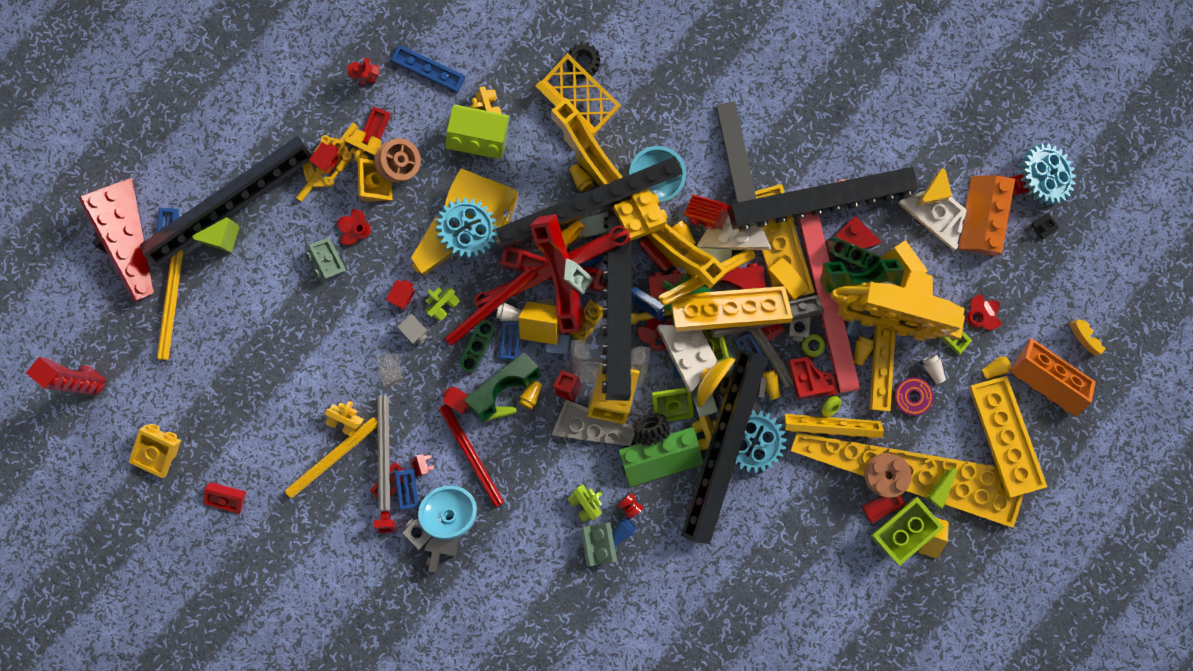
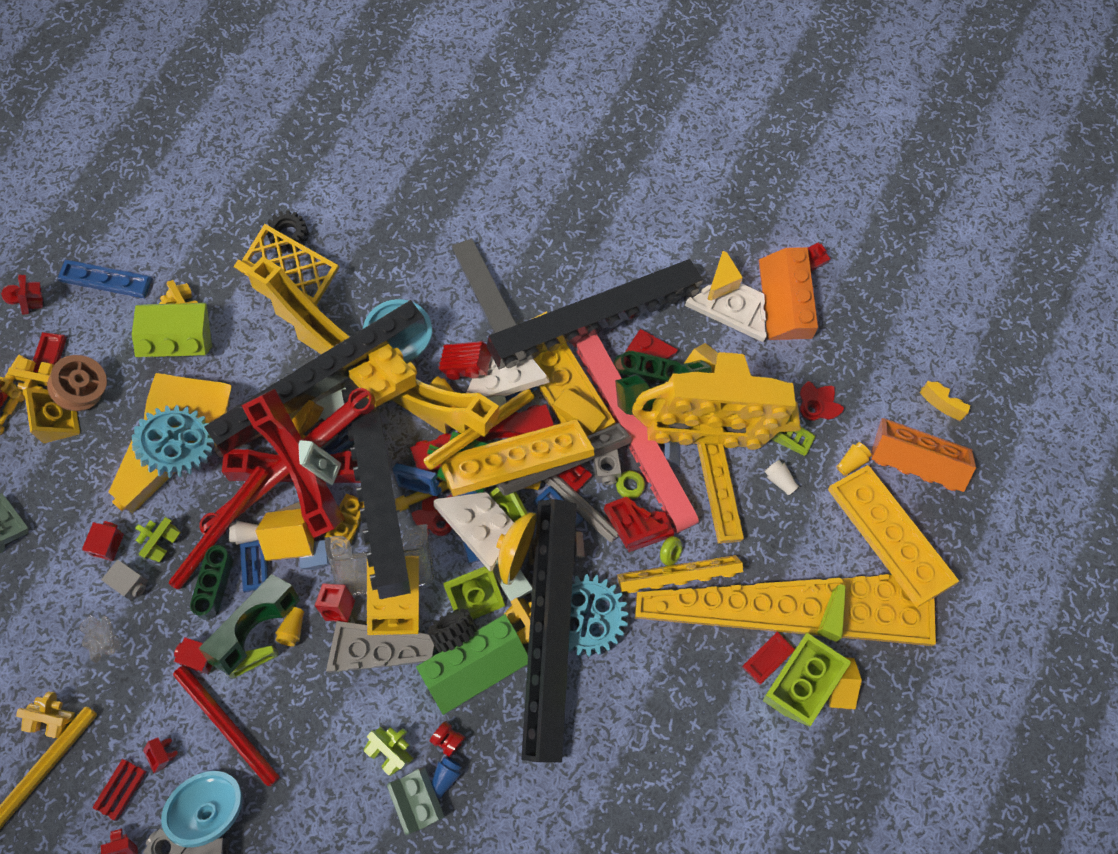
camera: 20 degrees left, 15 degrees down
(351, 225) = (33, 476): red plate -> none
(383, 453) = (105, 752): light grey axle -> none
(404, 472) = (137, 769): blue tile -> none
(581, 178) = (304, 353): yellow cone -> none
(655, 255) = (415, 424): red slope -> none
(772, 384) = (592, 542): yellow cone -> none
(862, 350) = (690, 475): yellow cone -> none
(898, 479) = (775, 608): nougat wheel -> none
(924, 392) = (773, 504): magenta tile -> none
(1045, 226) = (857, 293): black tile -> none
(1047, 174) = (841, 237): medium azure gear -> none

